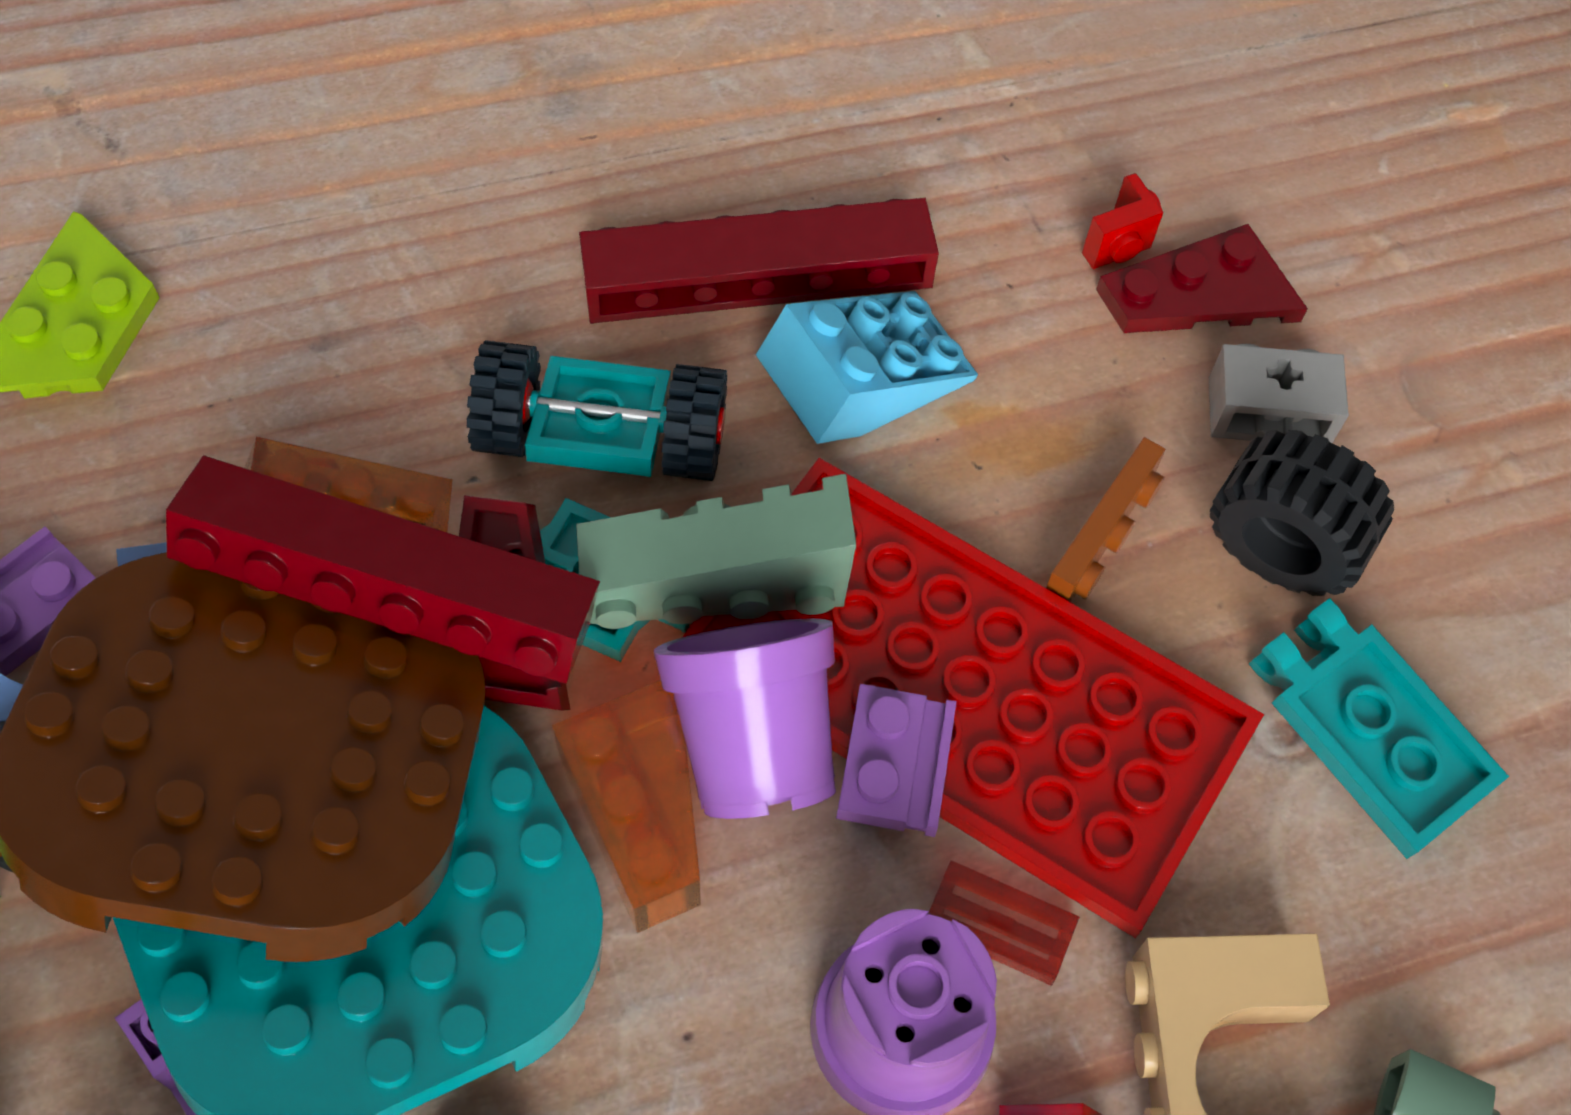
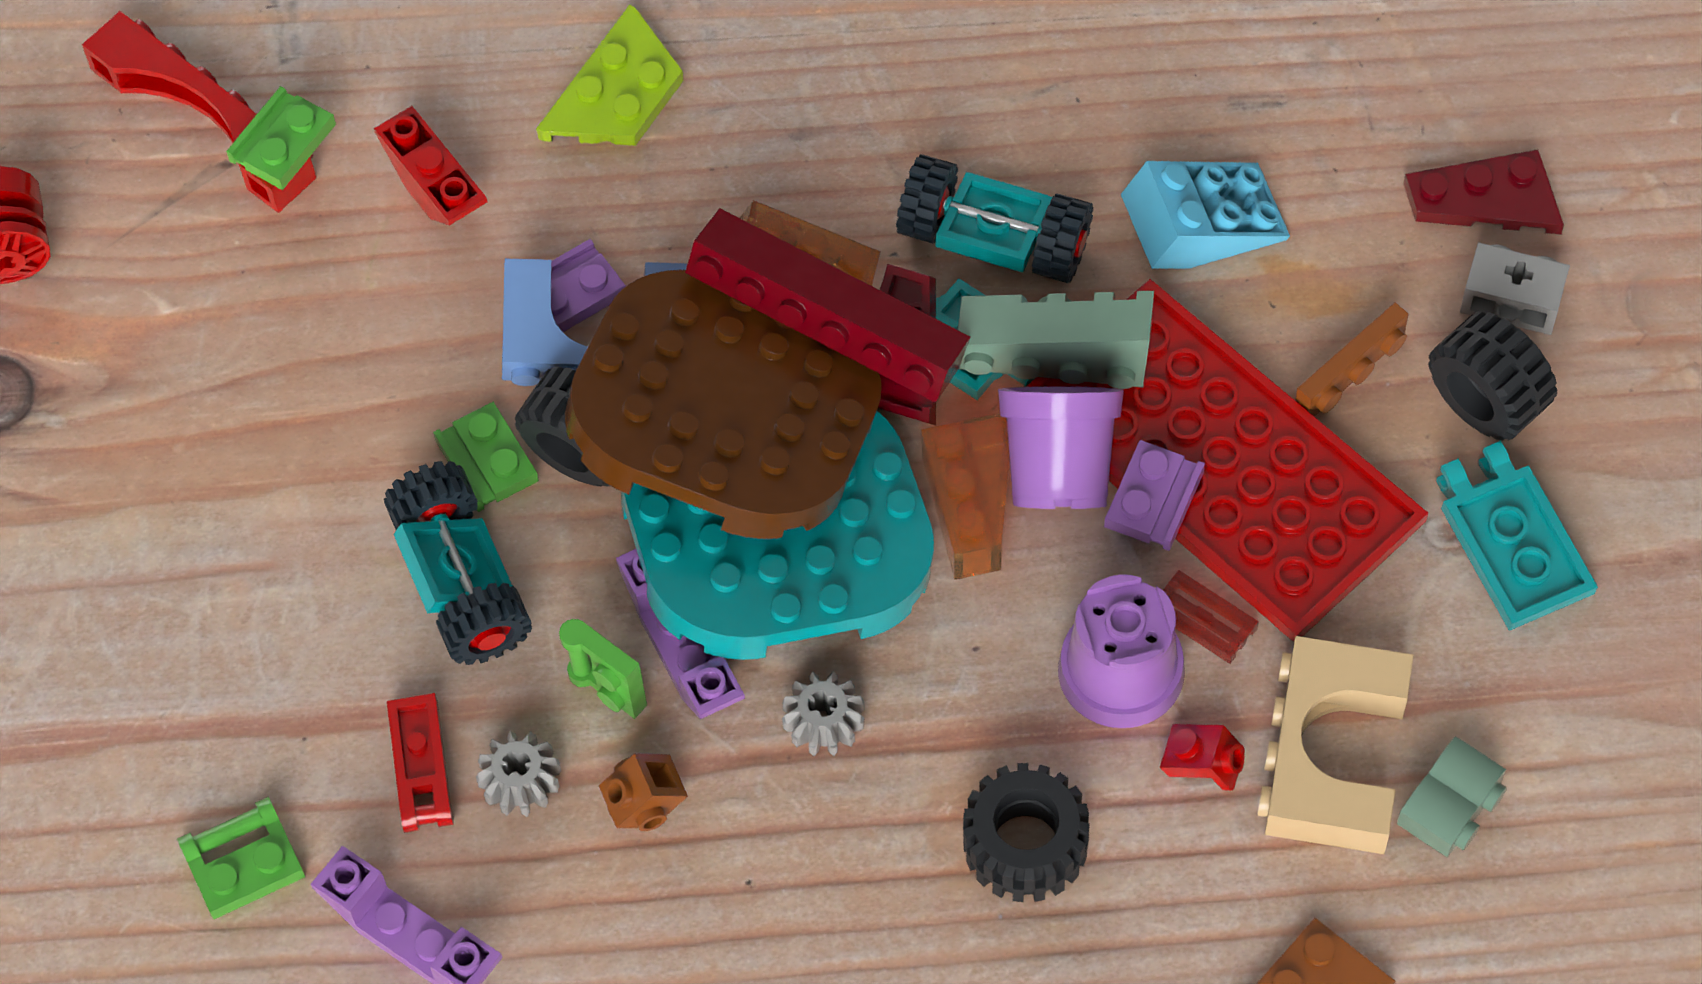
camera: 20 degrees right, 0 degrees up
(758, 259) = (1139, 120): dark red brick -> none
(1125, 229) = (1435, 140): red bracket -> none

